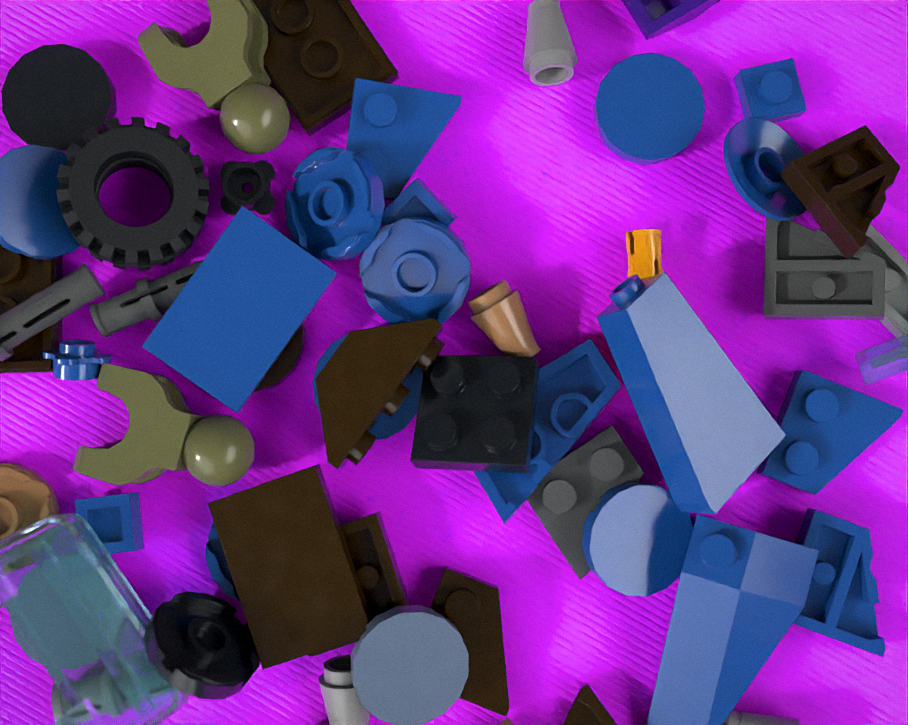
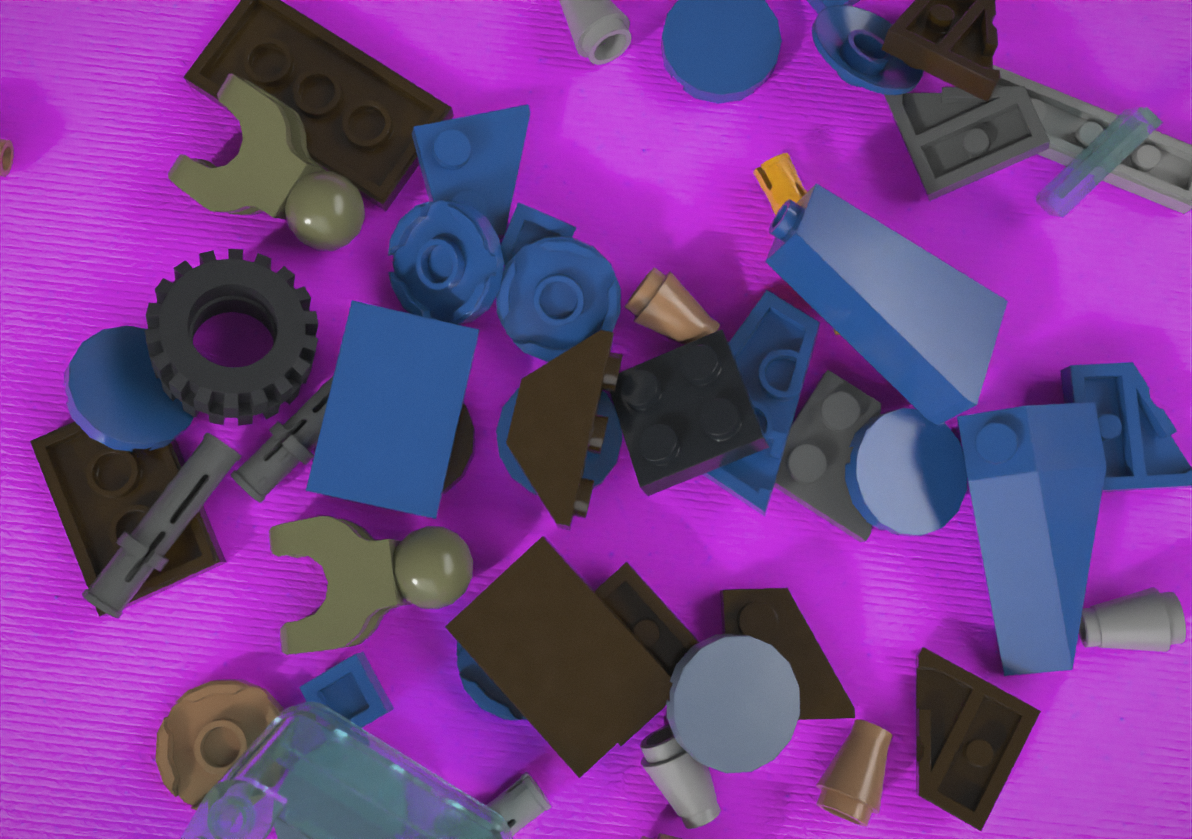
camera: 25 degrees left, 5 degrees down
(57, 96) = (104, 275): black tile -> none
(76, 360) = (240, 537): blue plate -> none
(200, 646) = (504, 780): black tile -> none
(236, 175) = (330, 277): black plate -> none
(823, 431) = (1045, 287): blue wing -> none

